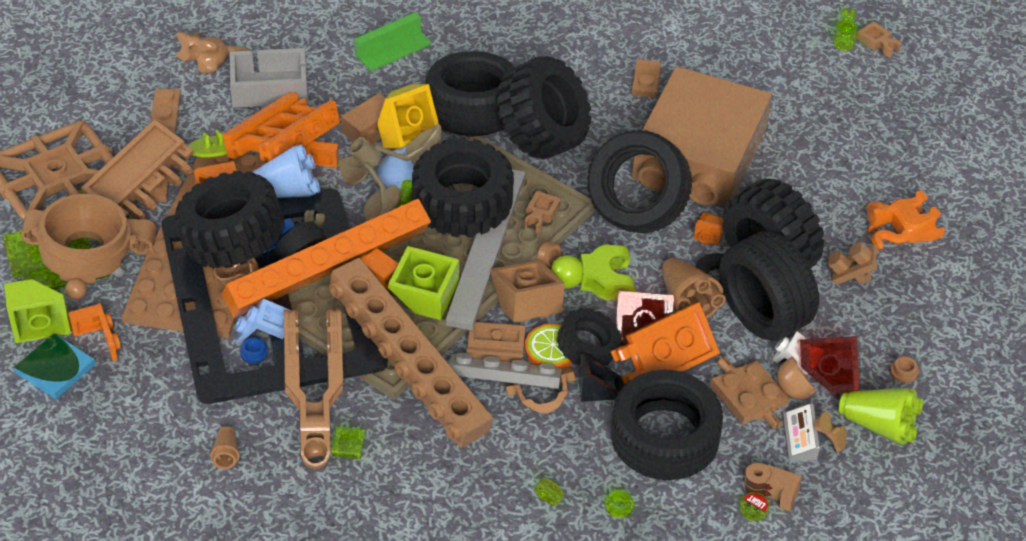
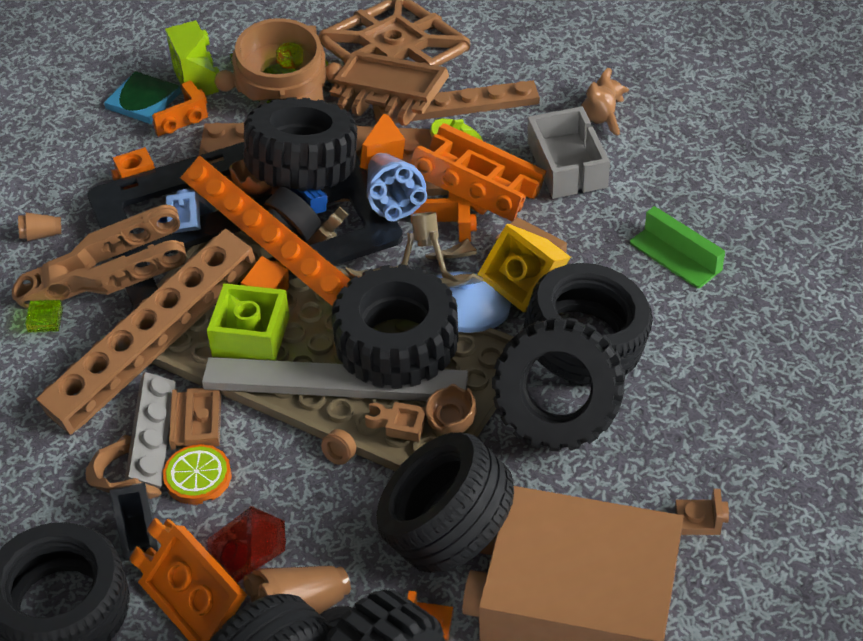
camera: 85 degrees right, 0 degrees up
(73, 230) = (289, 55): none -> clear neon green tile
(176, 369) = (131, 164): none -> orange brick
(528, 290) = (268, 427): medium nougat slope -> none
(542, 175) = (451, 409): none -> medium nougat hair
(591, 322) = (193, 474): black tyre -> none
(595, 271) = (316, 495): lime piece -> none

